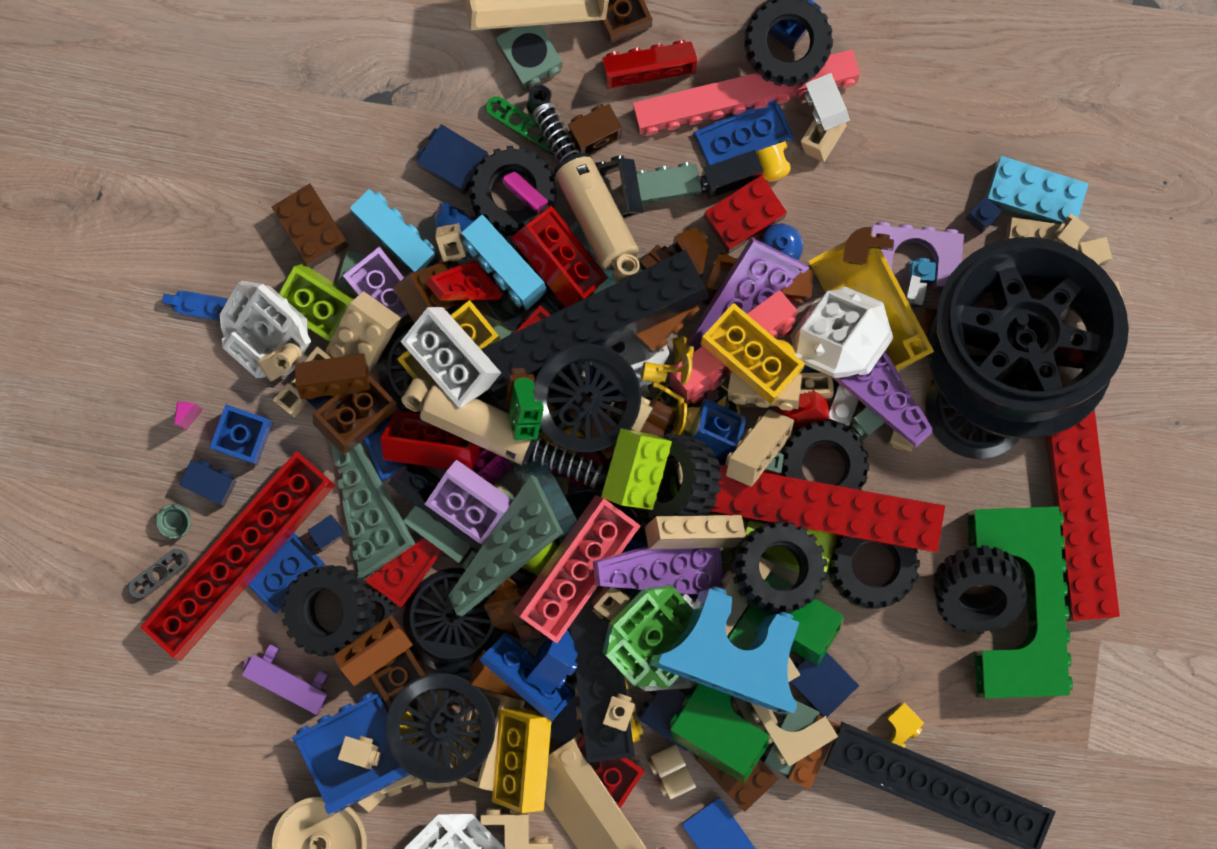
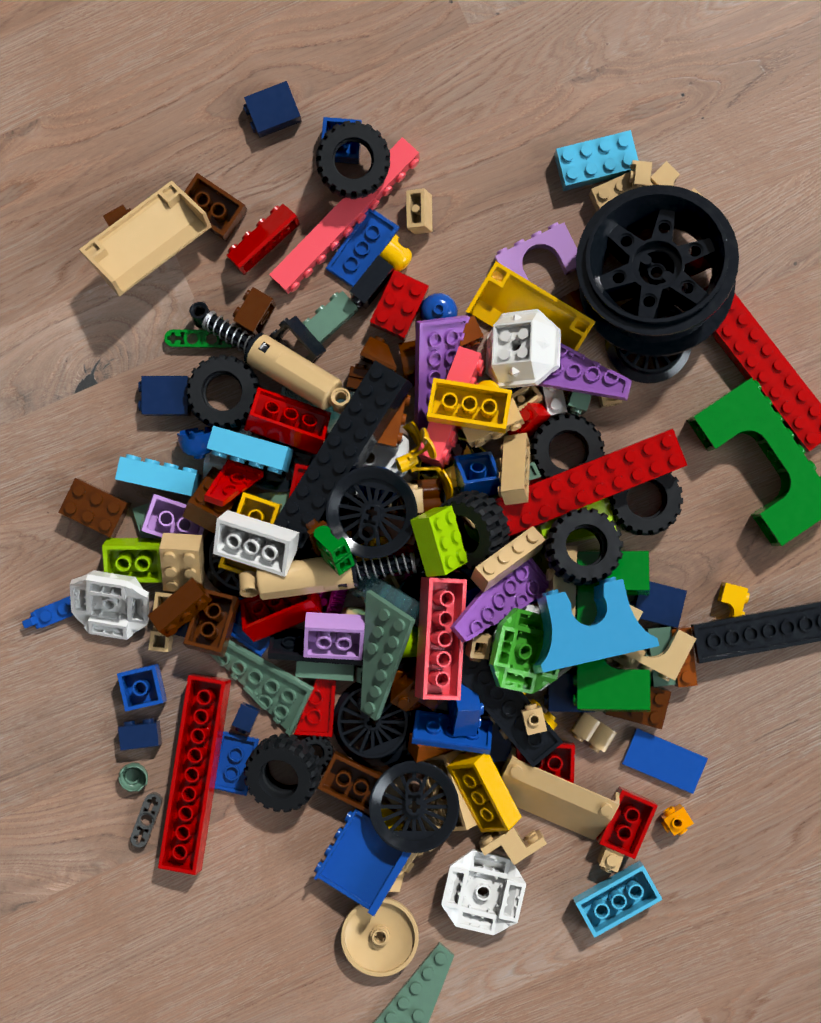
camera: 25 degrees left, 5 degrees up
(186, 414) = (93, 698): dark pink slope -> none
(279, 361) = (135, 619): tan piece -> none
(285, 683) = (284, 840): medium lavender brick -> none
(360, 752) = (368, 860): tan brick -> none
(372, 650) = (332, 783): dark orange brick -> none
(449, 250) = (202, 458): tan brick -> none
(525, 192) = (233, 388): dark pink slope -> none
(529, 54) = (173, 285): sand green brick -> none
(827, 101) = (408, 187): white brick -> none
(860, 242) = (496, 278): reddish brown brick -> none
(916, 292) = (556, 285): white slope -> none
(922, 268) = (550, 268): dark azure brick -> none
(974, 568) = (719, 459): black tyre -> none
(983, 214) = (569, 199): dark blue brick -> none

